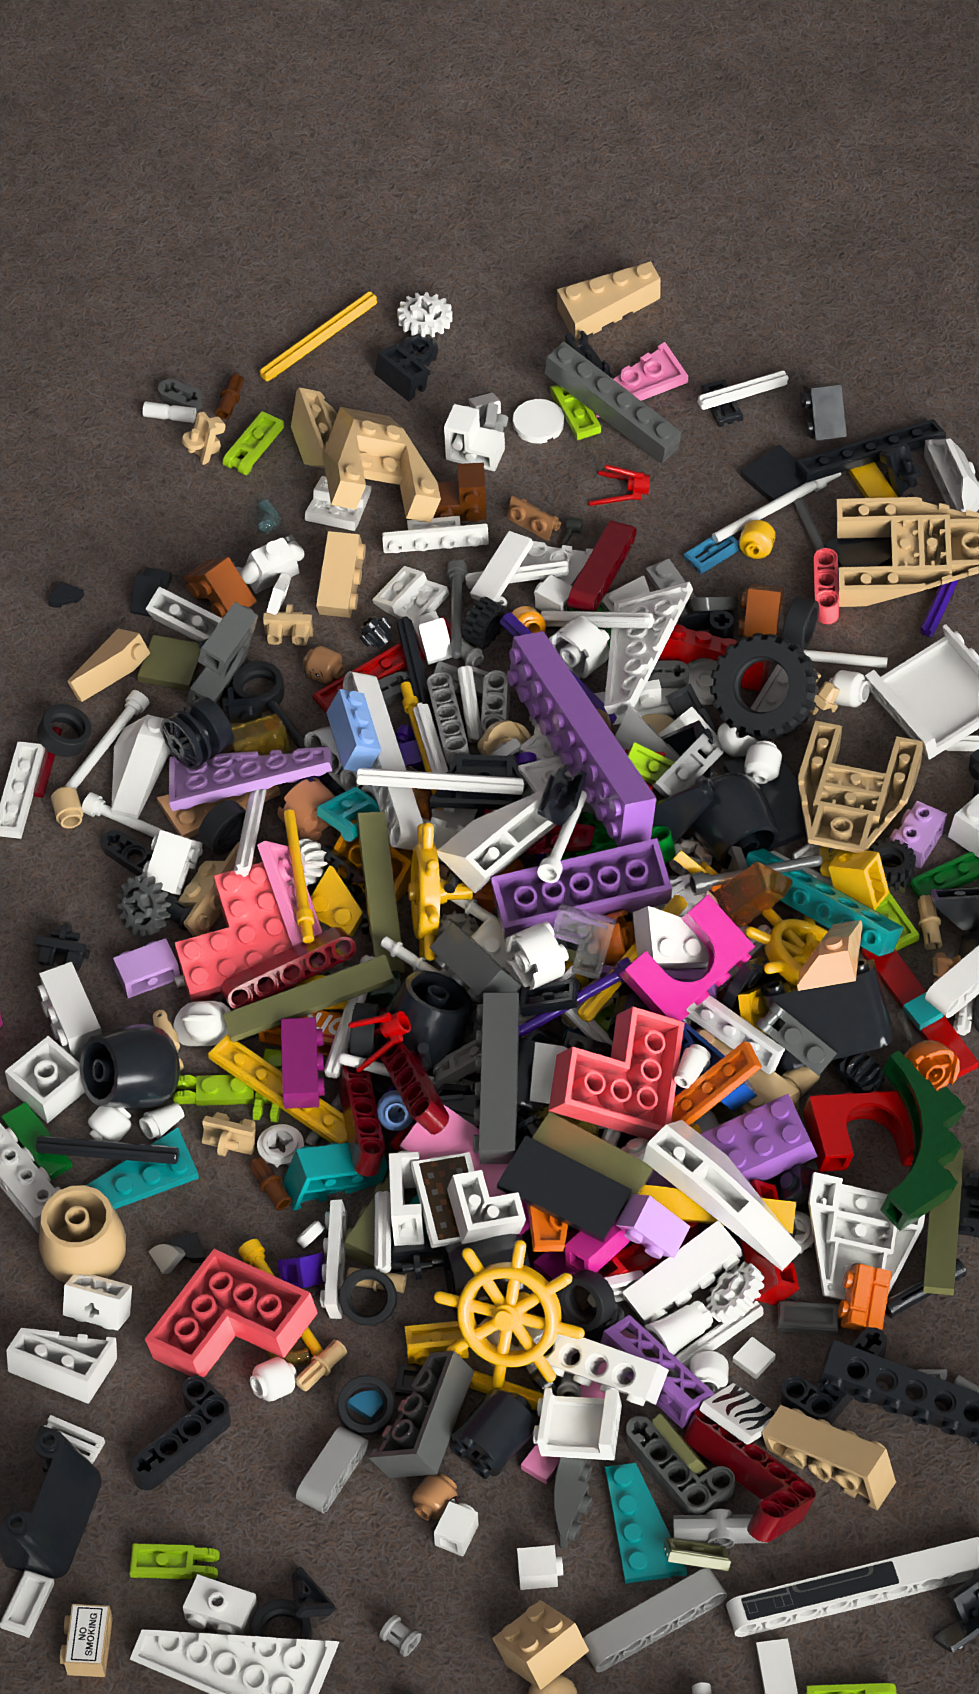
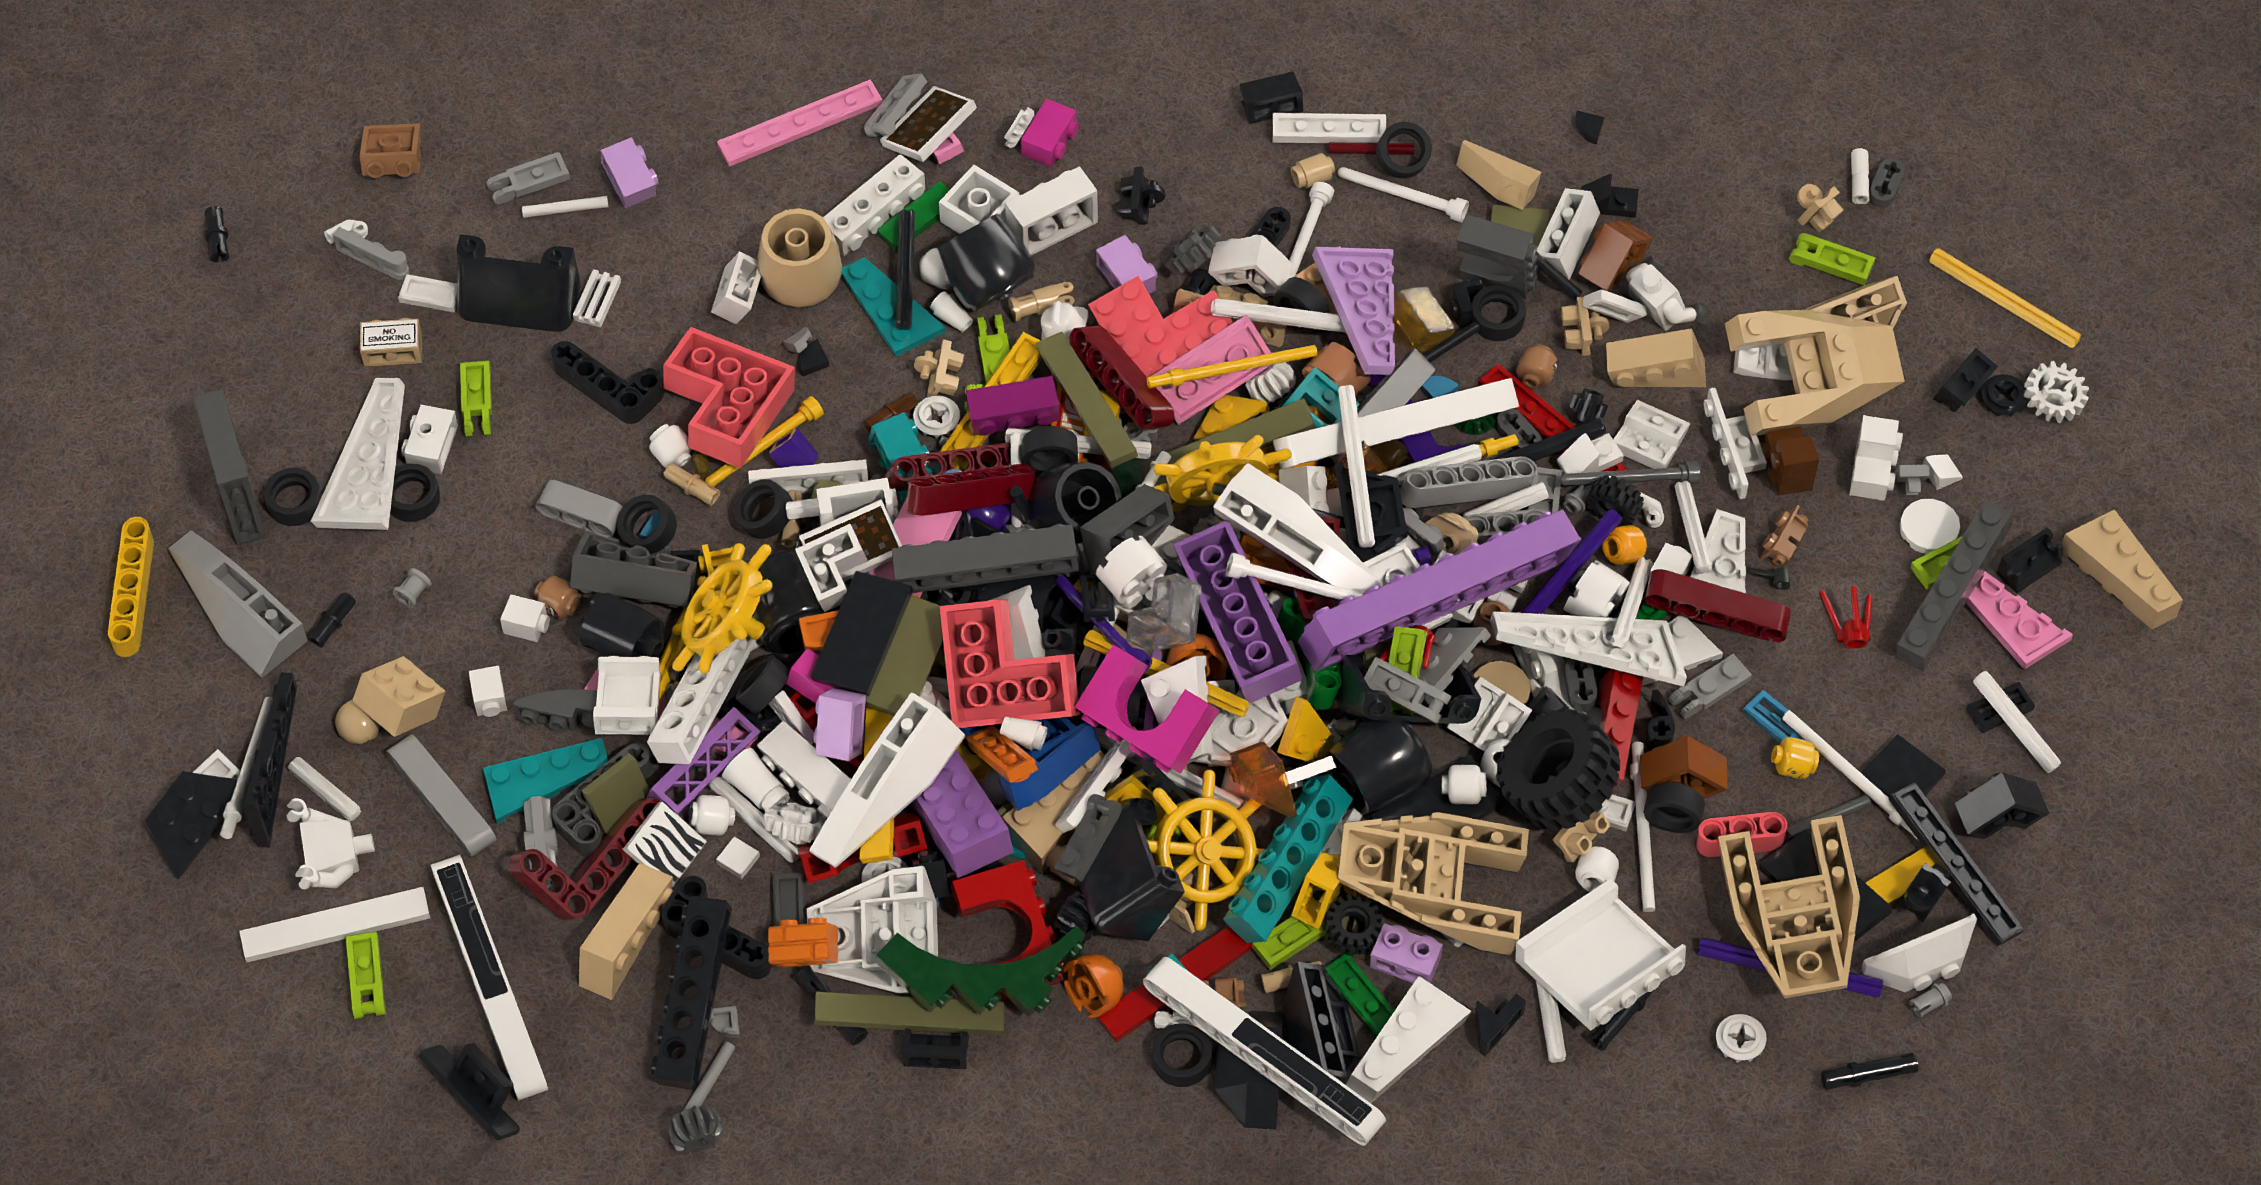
camera: 80 degrees right, 5 degrees up
(62, 1362) = (669, 273): white wedge -> none
(137, 765) = (1379, 224): white wedge -> none
(197, 732) = (1401, 253): black wheel -> none
(229, 396) = (1895, 227): reddish brown axle -> none
(271, 517) = (1732, 292): clear light blue arm -> none
(308, 1597) = (442, 508): black tile -> none
(310, 1233) = (834, 453): white tile -> none
(353, 730) = (1420, 385): light blue brick -> none
(392, 1027) = (1039, 462): red plant -> none
(502, 567) = (1690, 506): white tile -> none
(561, 795) = (1341, 569): black hinge -> none
(696, 1554) = (503, 821): olive tile -> none
(702, 882) = (1272, 727): dark grey piece -> none
(714, 603) = (1688, 719): dark grey beam -> none
(834, 958) = (1178, 851): light nougat wedge -> none

